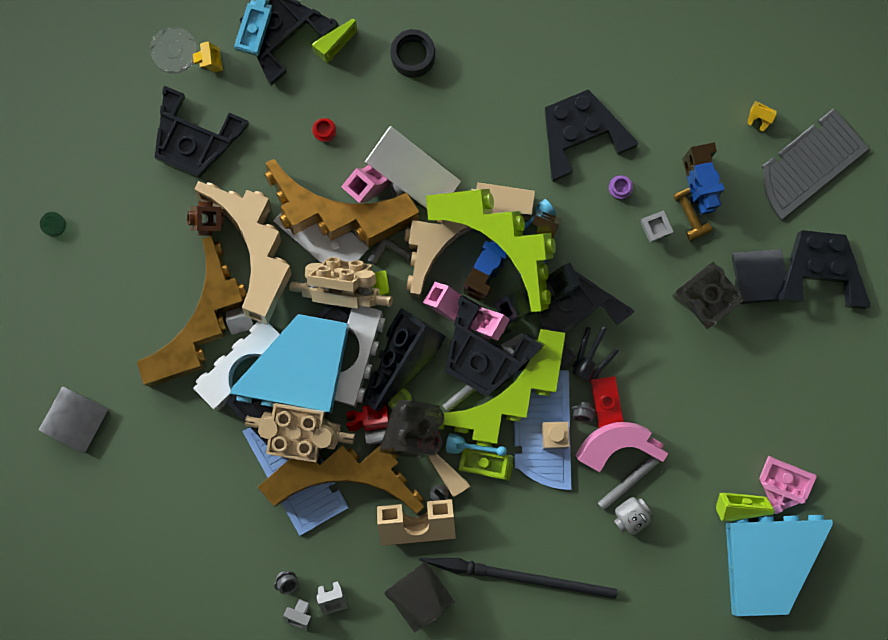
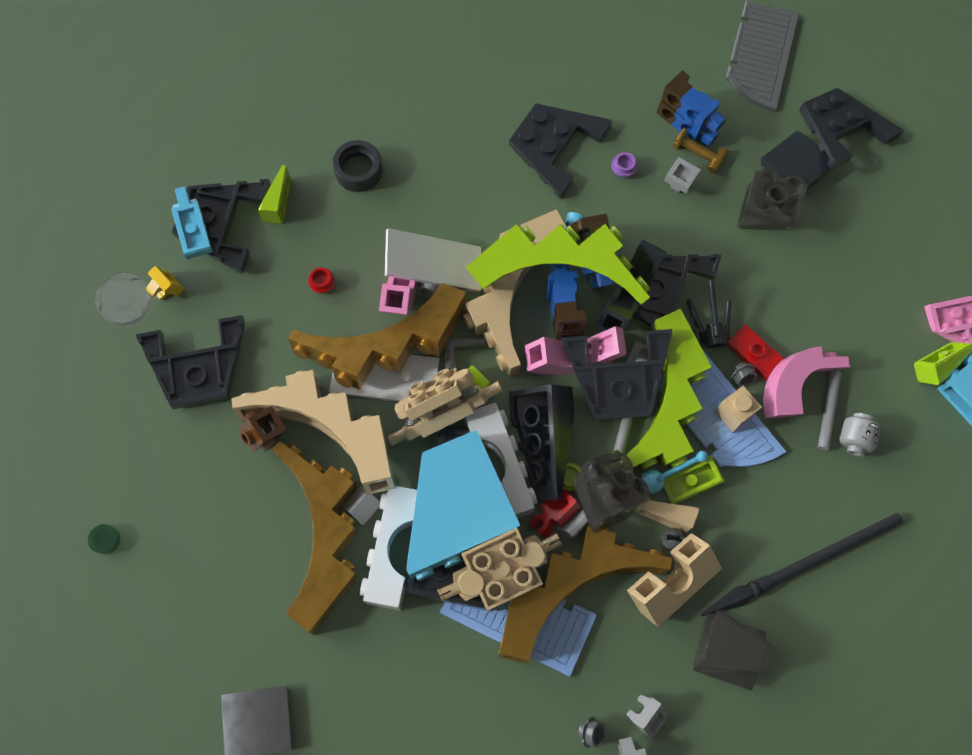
camera: 40 degrees left, 10 degrees down
(761, 111) = (699, 34): yellow tile -> none

